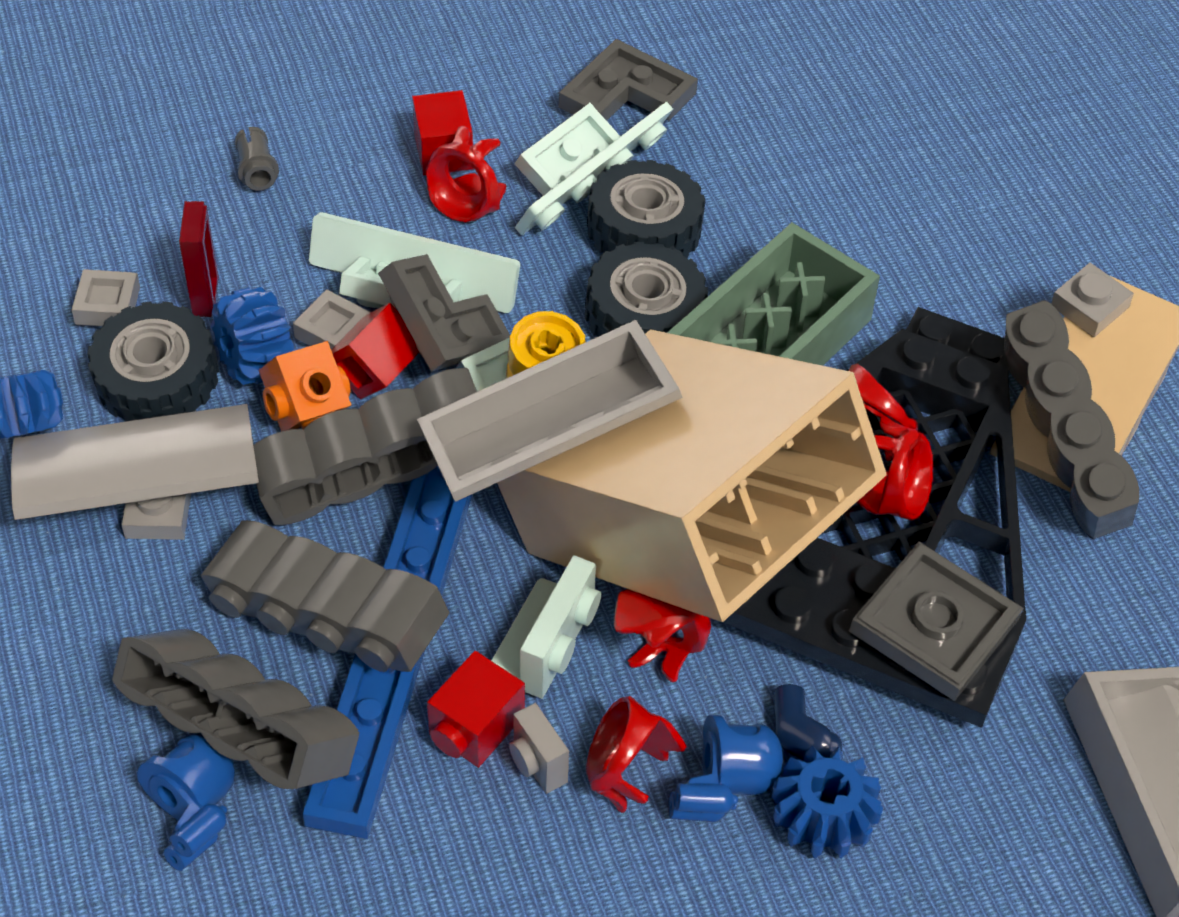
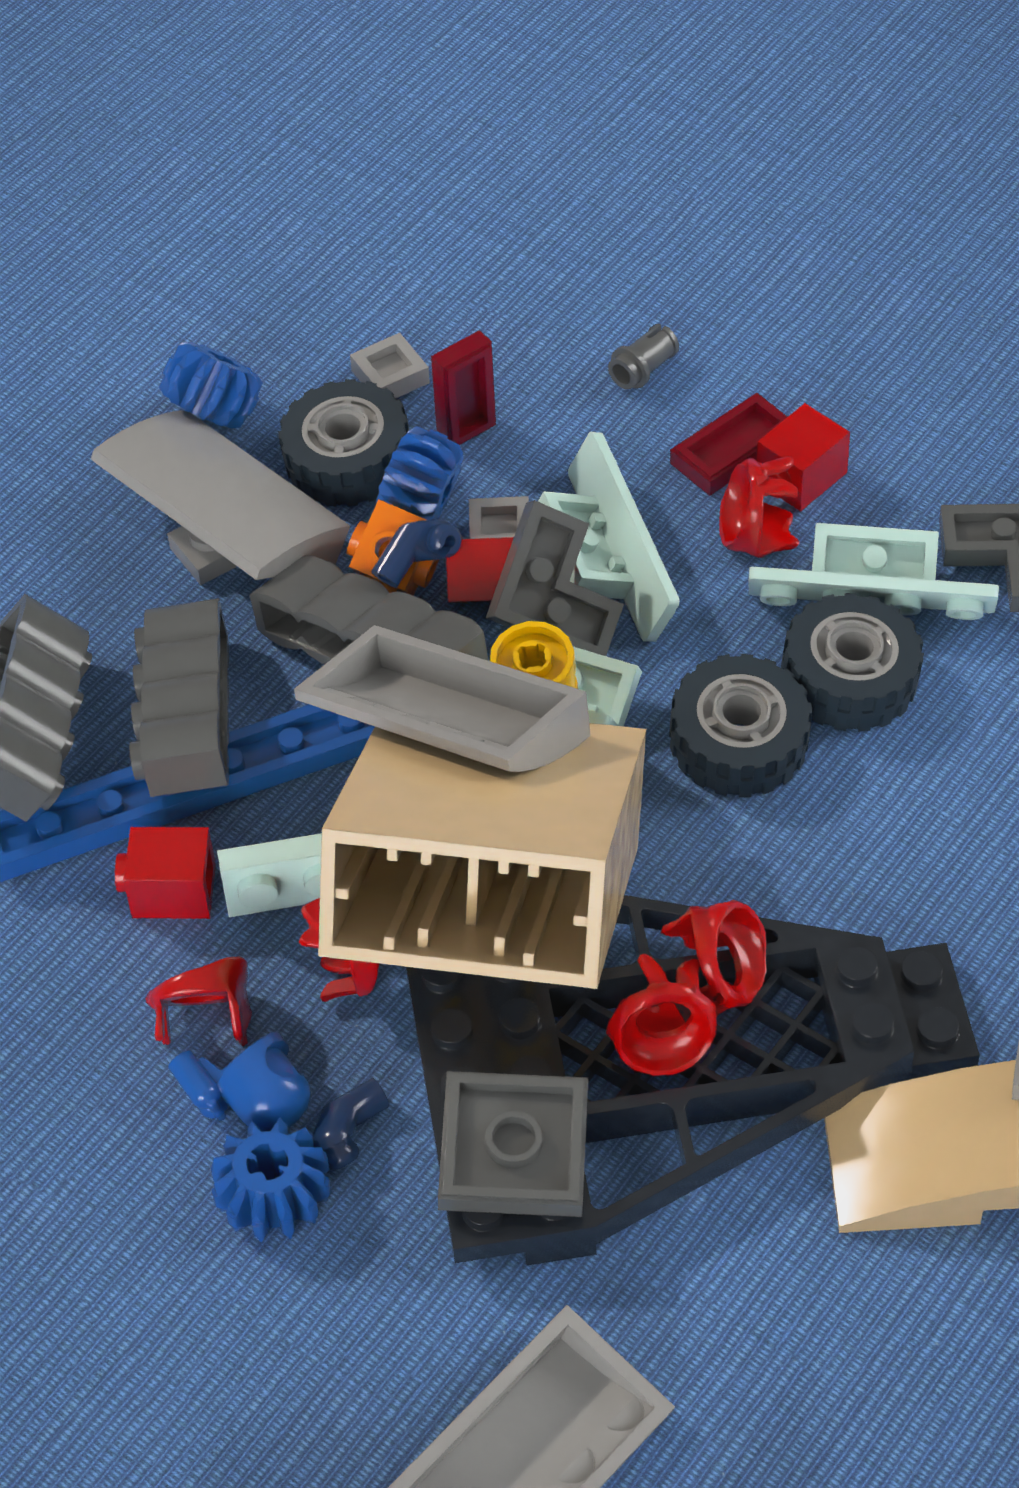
camera: 60 degrees right, 0 degrees up
(340, 360) = (416, 543): none -> dark blue arm
(382, 164) = (717, 448): none -> dark red tile
(539, 749) = (163, 938): light grey plate -> none
(788, 301) = (772, 831): sand green brick -> none
(1077, 428) = (864, 1142): dark grey brick -> none

